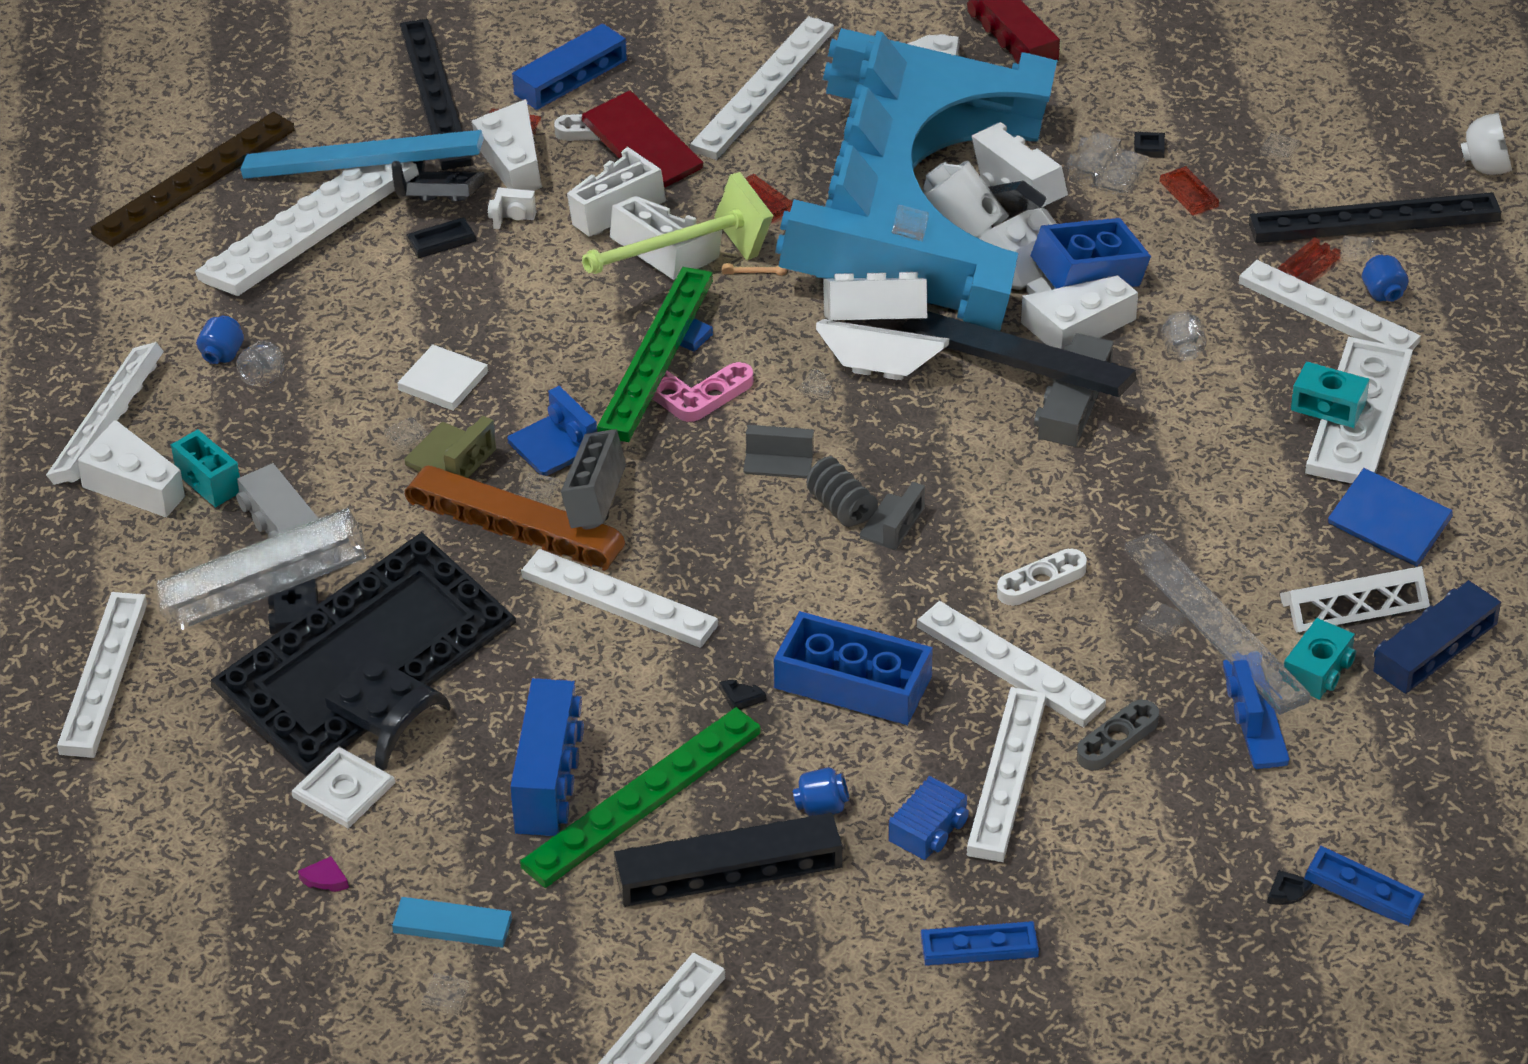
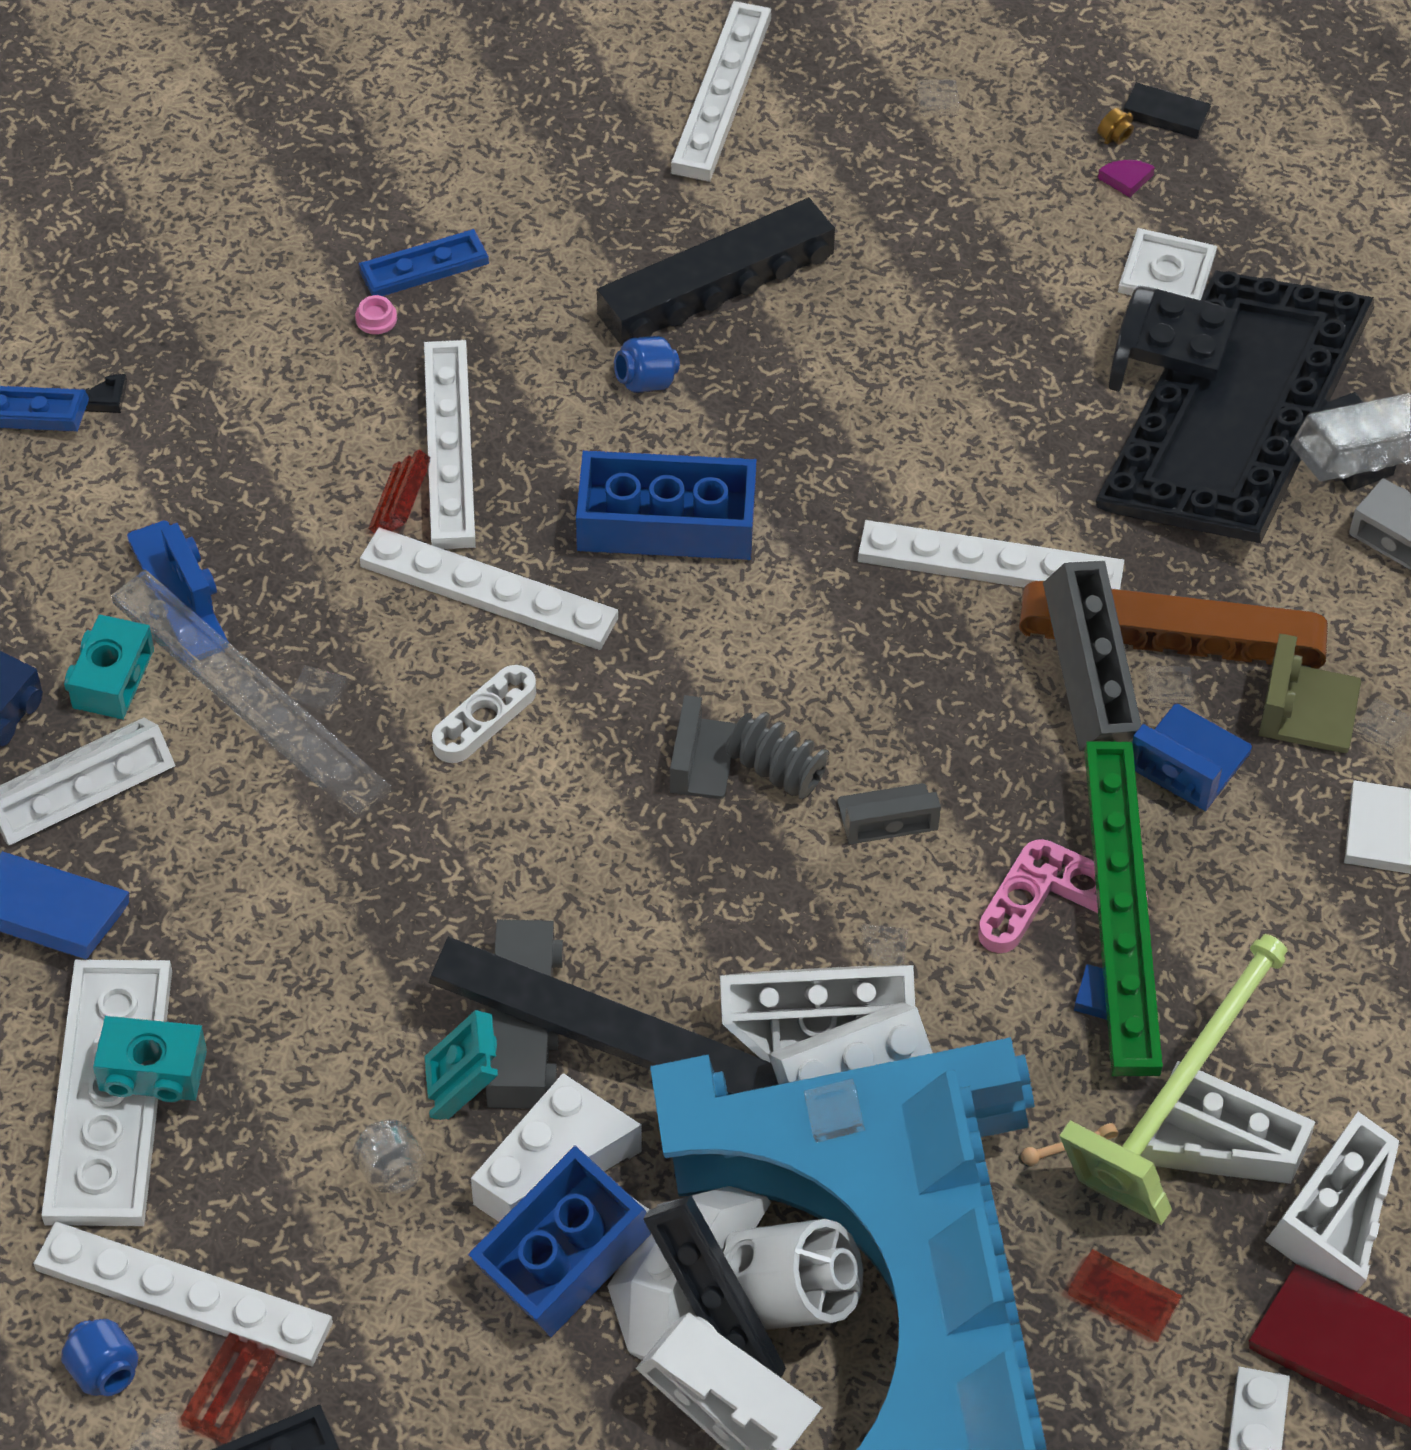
camera: 160 degrees right, 10 degrees up
(249, 929) = (1167, 110): none -> black tile
(305, 914) = (1116, 126): none -> pearl gold plate
(452, 922) = (971, 162): dark azure tile -> none
(546, 757) = (959, 308): blue brick -> none
(639, 797) = (841, 336): green plate -> none
(740, 694) = (789, 474): black tile -> none
(928, 818) = (518, 366): blue brick -> none
(1036, 900) = (376, 315): none -> bright pink plate
(1056, 754) = (400, 492): none -> clear red tile
(1120, 722) = (334, 509): dark grey beam -> none
(1122, 349) = (461, 1065): none -> teal plate

